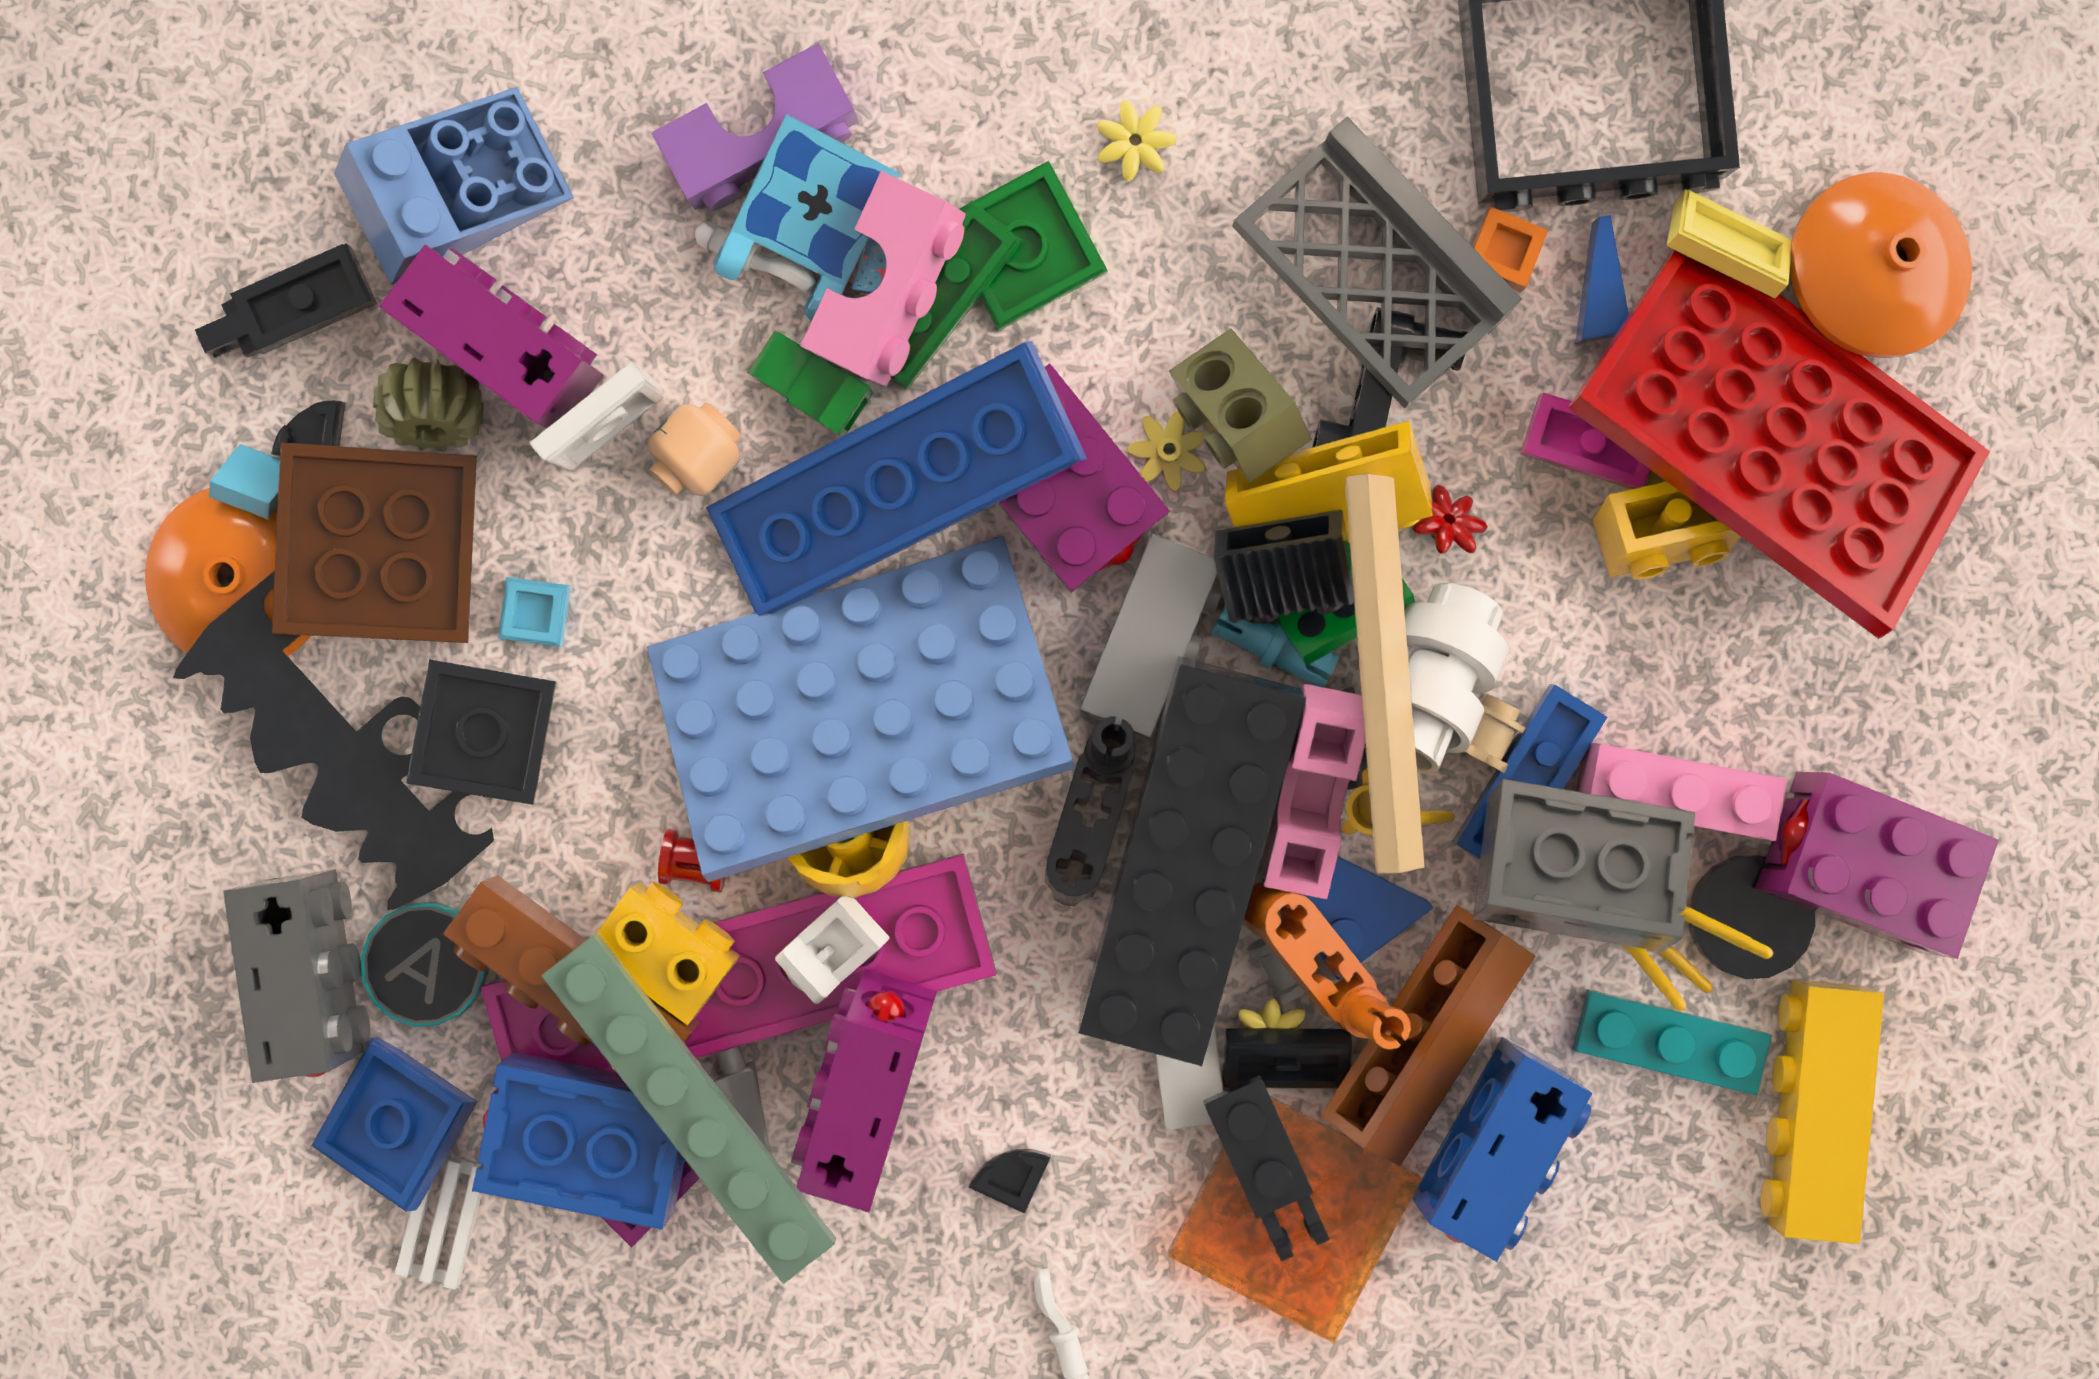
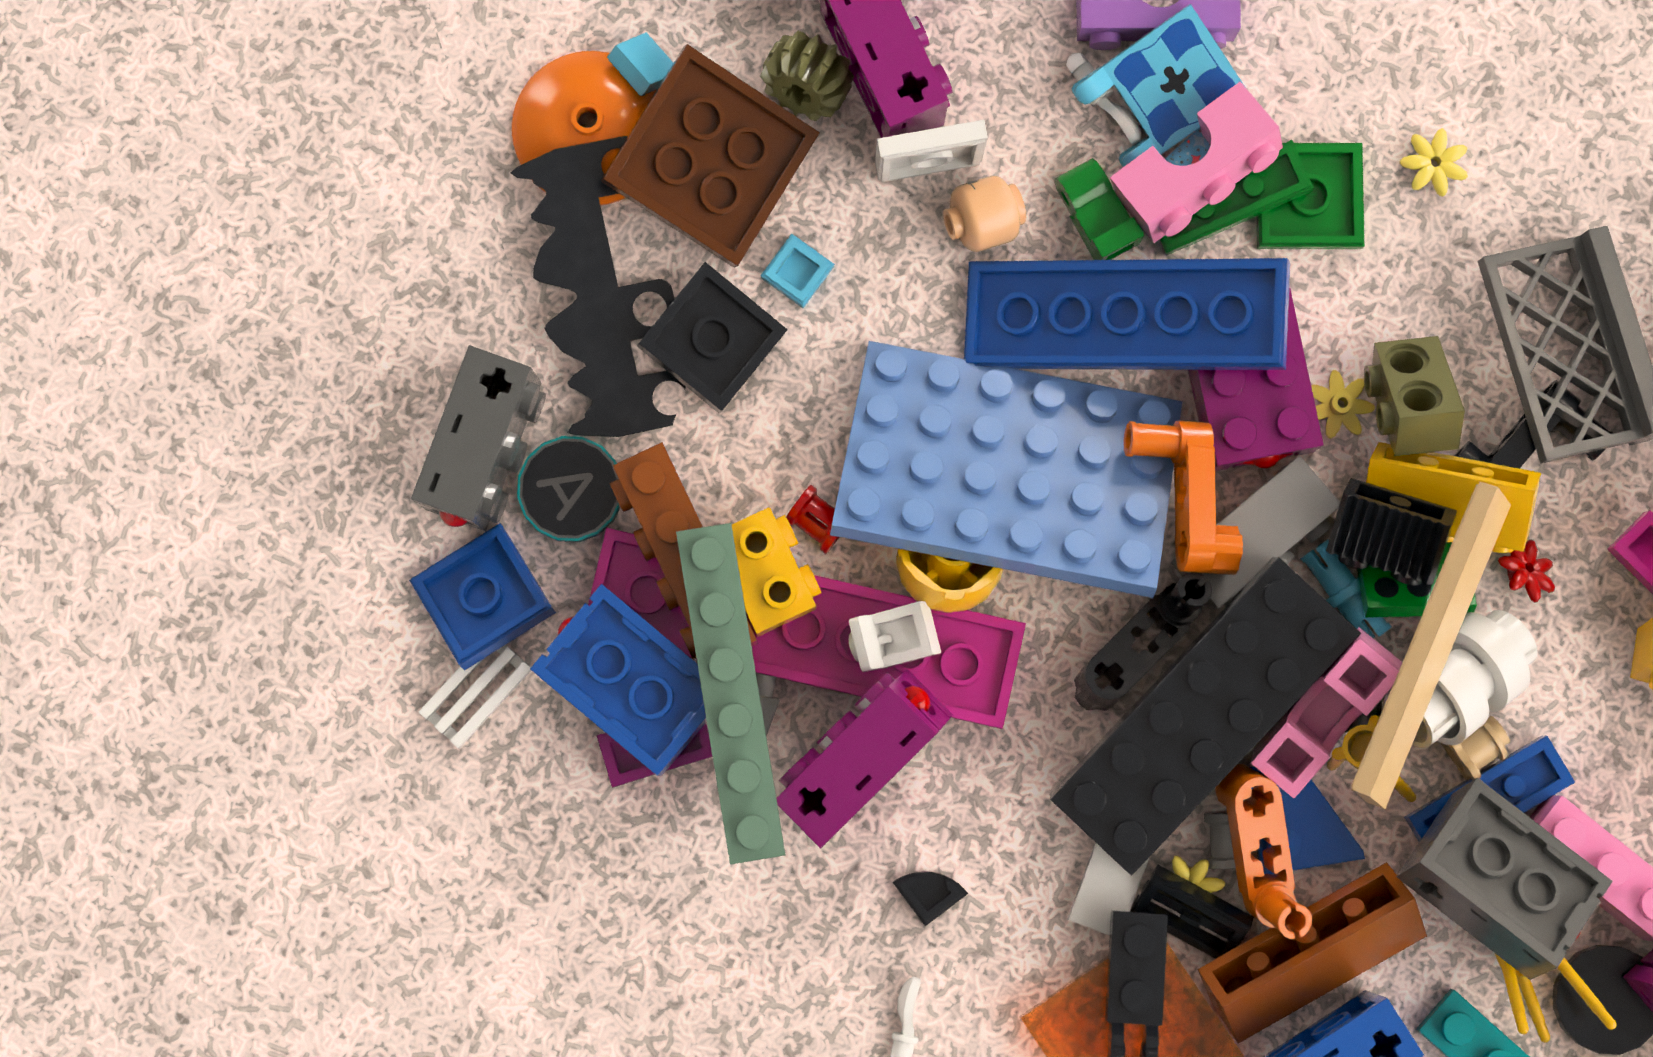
camera: 25 degrees right, 5 degrees down
(315, 425) = (715, 46): black tile -> none
(1095, 685) = (1198, 540): none -> orange beam

